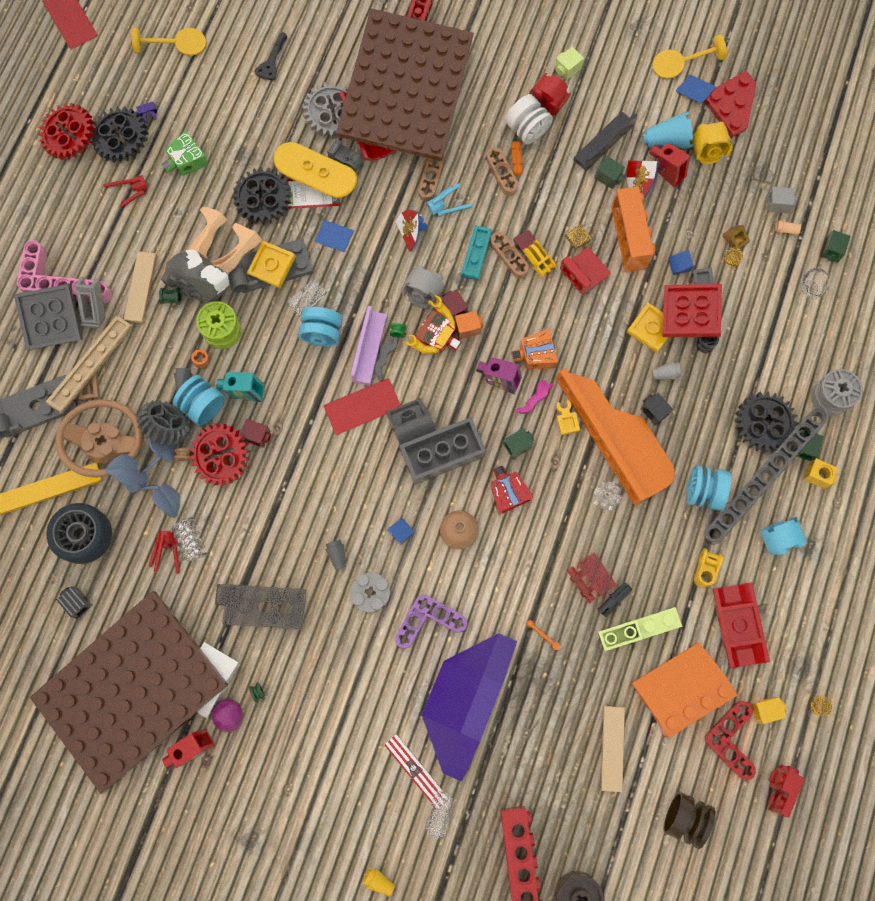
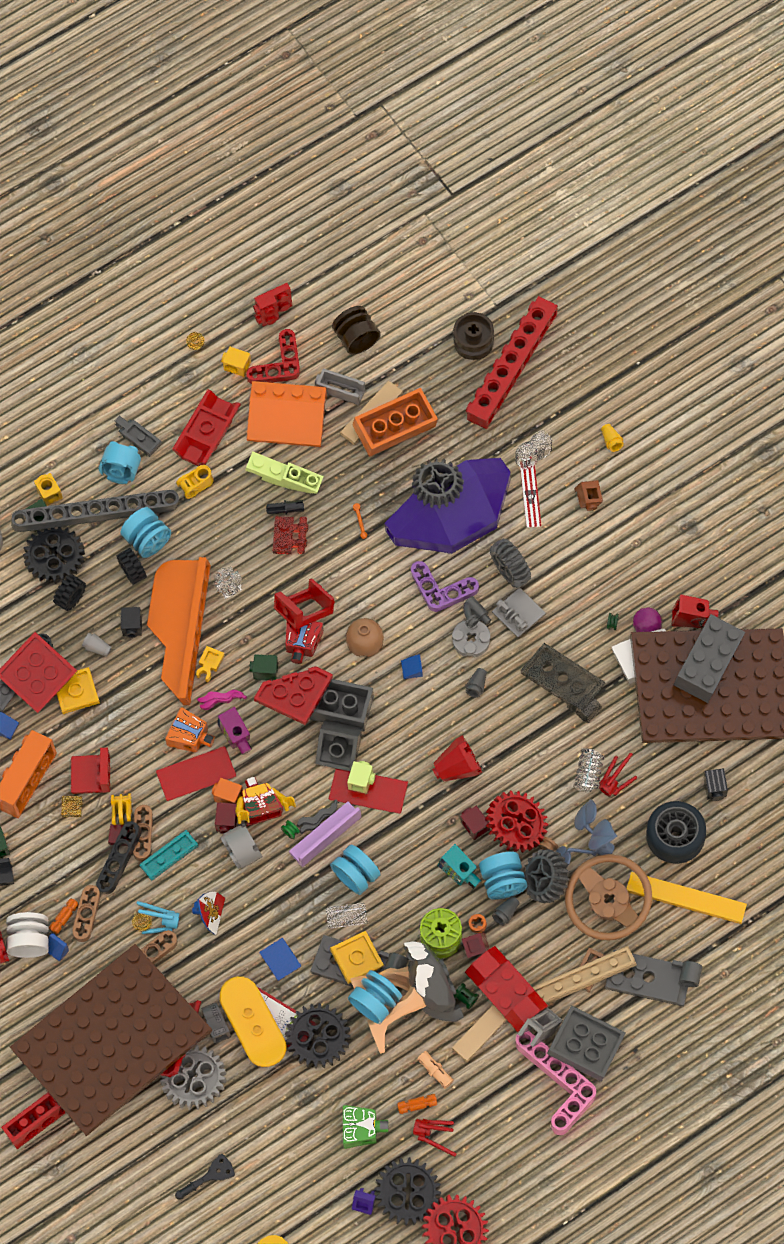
camera: 140 degrees left, 10 degrees down
(136, 317) = (505, 988): none -> red piece
(137, 707) = (709, 658): none -> dark grey brick
(146, 228) = (435, 1069): none -> light nougat pin
(155, 199) = (417, 1103): none -> orange axle
(185, 335) = (475, 944): none -> dark red brick
(224, 224) = (377, 994): none -> medium azure wheel
(301, 472) = (457, 762): none -> red cone
(345, 645) = (518, 612): none -> light grey hinge
(358, 811) = (589, 490): none -> dark orange brick
(372, 407) = (361, 777): none -> yellowish green brick
(380, 680) = (510, 563): none -> dark grey gear
(386, 620) = (475, 612): none -> dark grey plant
(458, 194) = (141, 922): none -> clear yellow plate
(470, 683) = (449, 475): none -> dark grey gear
(471, 427) = (295, 693): none -> red plate
(503, 135) = (57, 947): none -> blue slope
(507, 328) = (195, 773): none -> red sticker
(510, 221) = (115, 856): none -> black beam
(532, 500) = (289, 611): none -> red window
(581, 749) = (395, 422): none -> orange brick
(679, 746) = (342, 381): none -> light grey window
(695, 451) = (131, 566): none -> black tyre
(724, 394) = (69, 592): none -> black tyre
(790, 576) = (138, 435): none -> dark grey hinge

